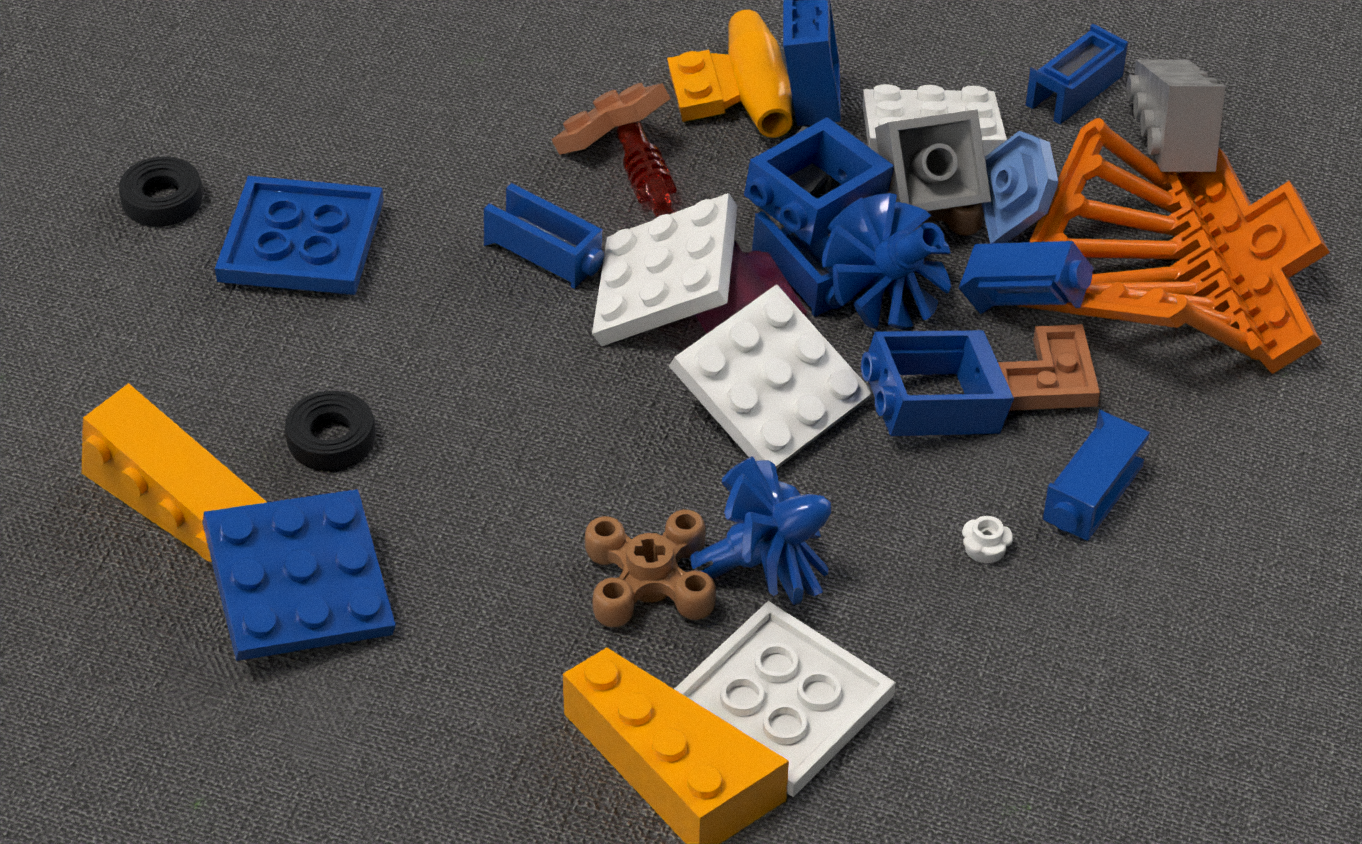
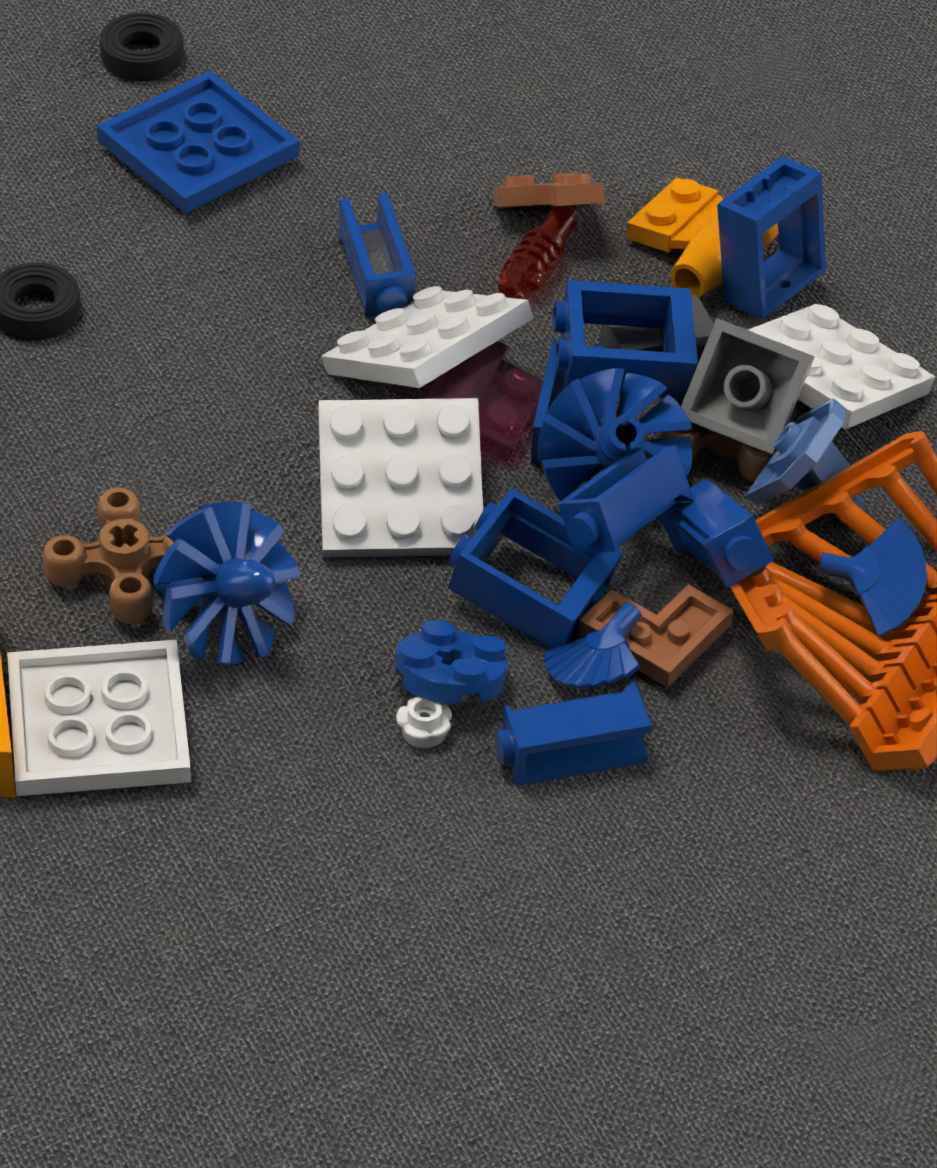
camera: 40 degrees right, 0 degrees up
(963, 484) = (451, 663): none -> blue plate
(967, 294) = (623, 500): none -> blue window
(1046, 413) = (599, 656): none -> blue hand
(1152, 235) = (885, 576): none -> blue hand

